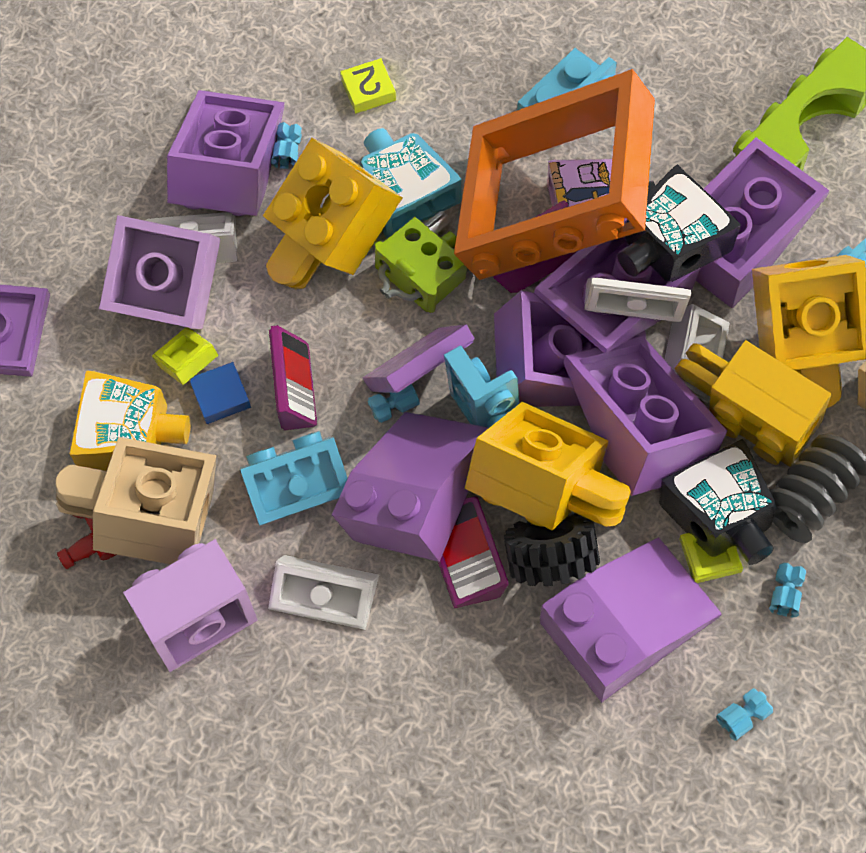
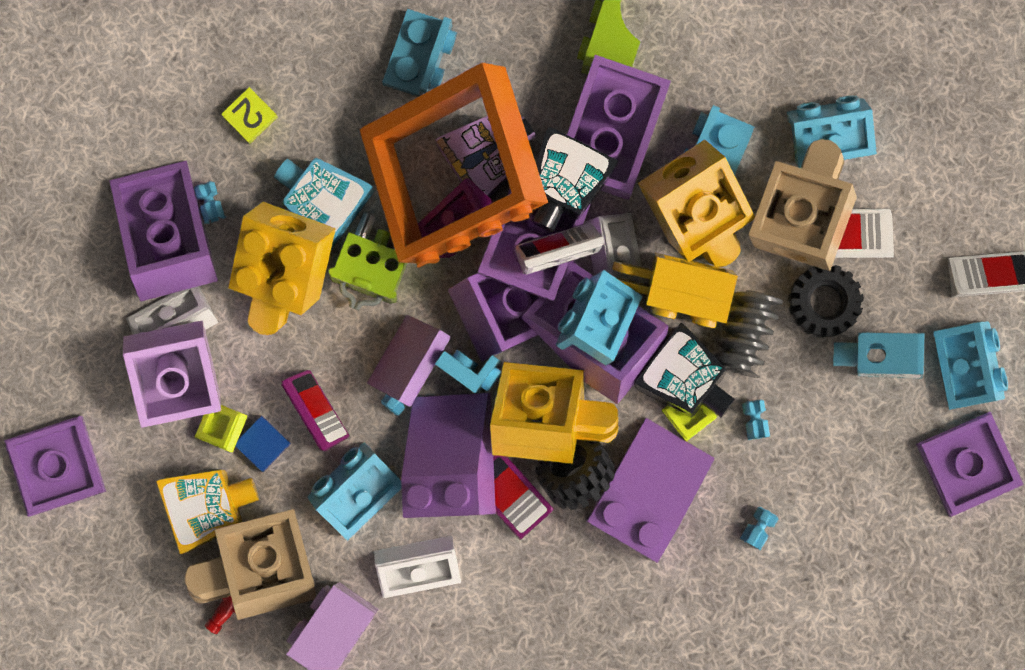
camera: 30 degrees left, 20 degrees up
(653, 382) = (599, 317): none -> medium azure bracket

